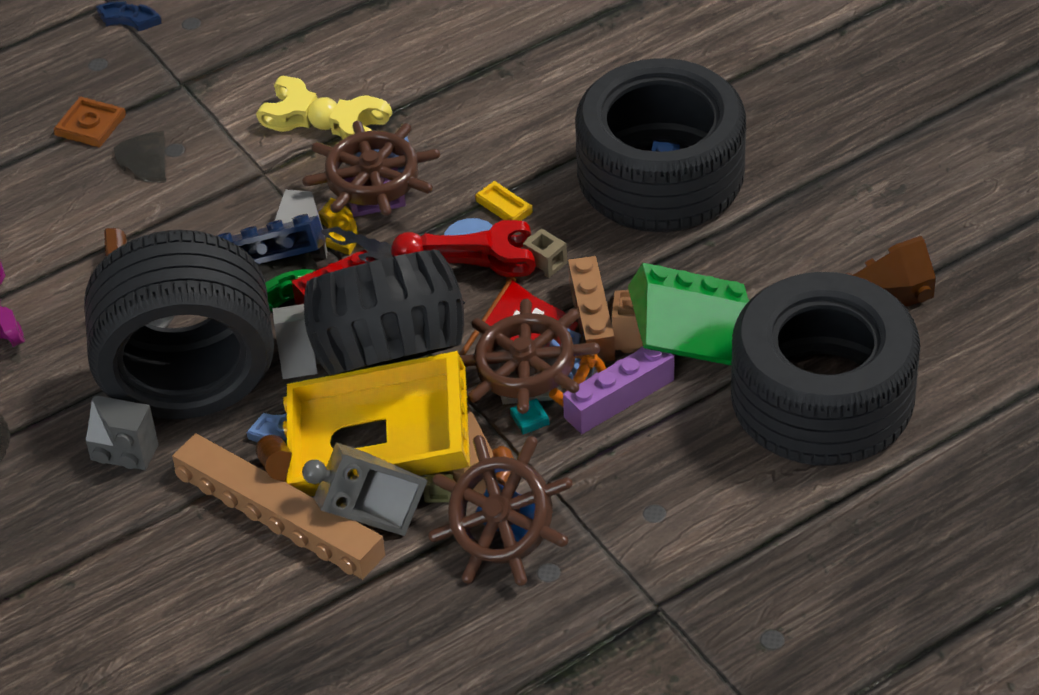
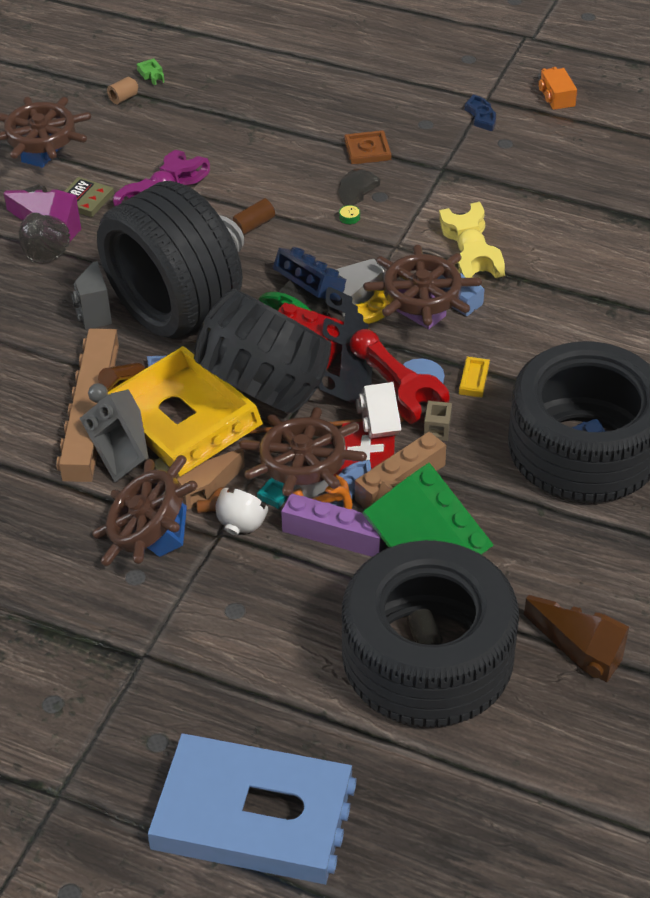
camera: 55 degrees right, 0 degrees up
(183, 183) = (349, 214): none -> tile
(504, 278) = (379, 410): none -> white brick
(552, 448) = (239, 511): none -> white cylinder
(885, 626) = (205, 800): none -> medium blue panel

